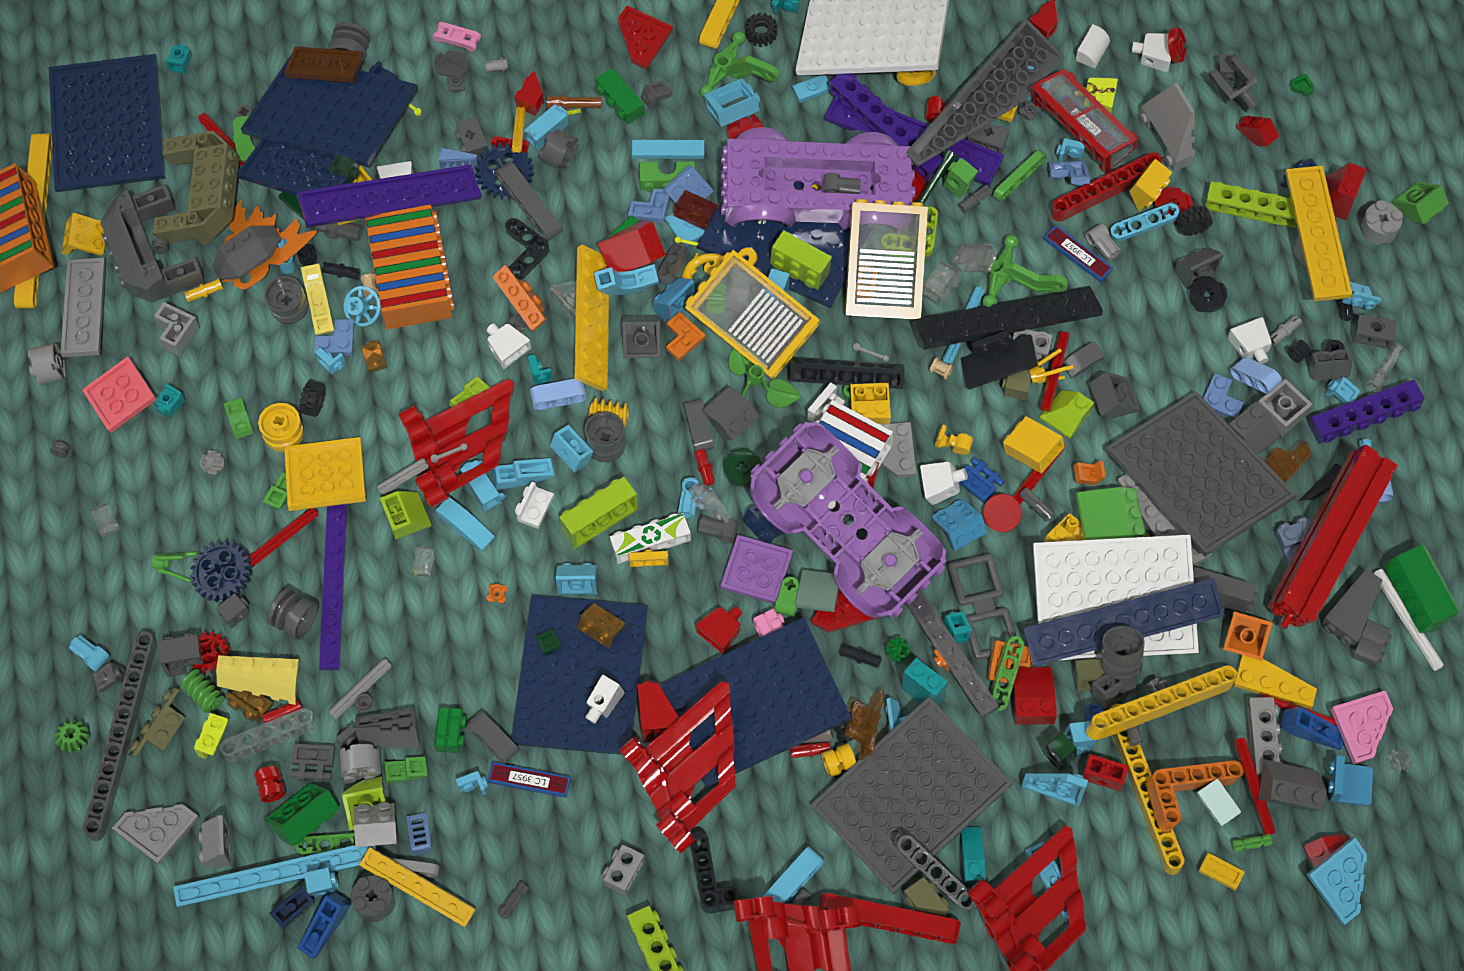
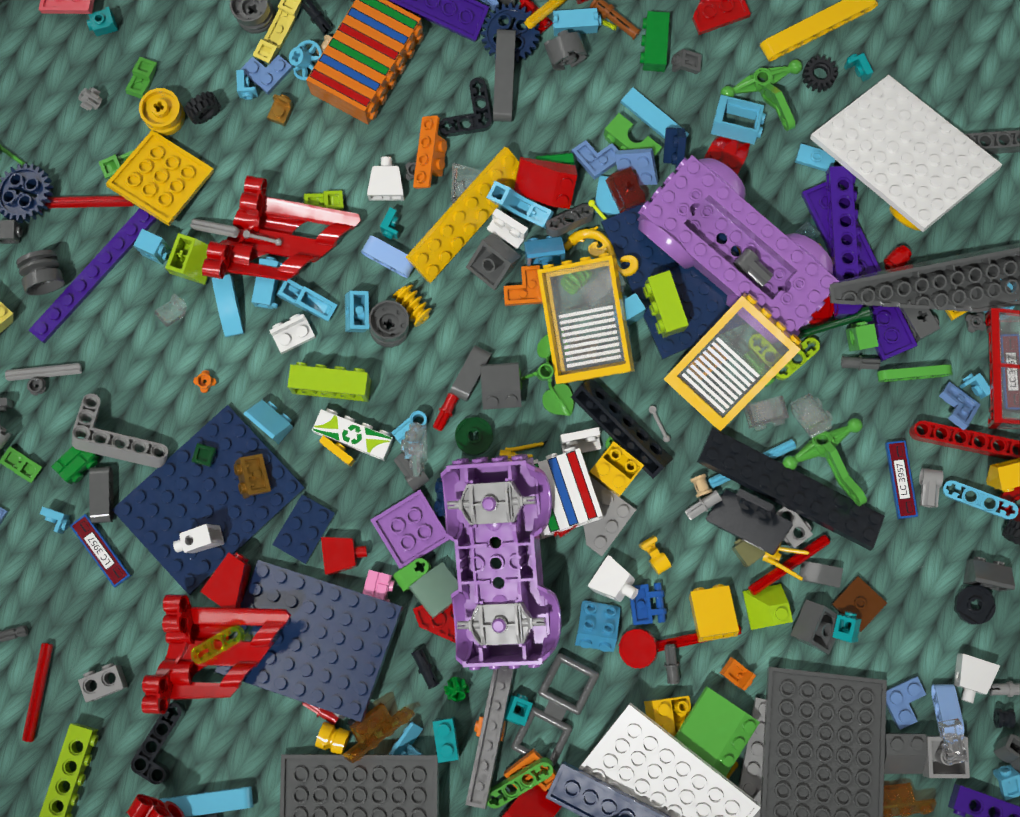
camera: 40 degrees right, 15 degrees up
(367, 525) = (152, 247): none -> medium azure brick
(389, 729) = (30, 426): dark grey wedge -> none
(468, 689) = (112, 440): none -> light grey beam
(577, 922) = (37, 692): none -> red axle
(631, 303) = (507, 229): none -> white bracket
(675, 636) = (304, 529): none -> dark blue plate
(700, 744) = (209, 644): none -> clear neon green beam
(704, 154) = (674, 145): none -> dark blue bracket
(955, 380) = (703, 505): none -> light grey axle
(1128, 358) = (861, 600): none -> reddish brown plate
(1128, 376) = (841, 628): none -> teal brick
(1279, 386) = (952, 735): none -> clear piece

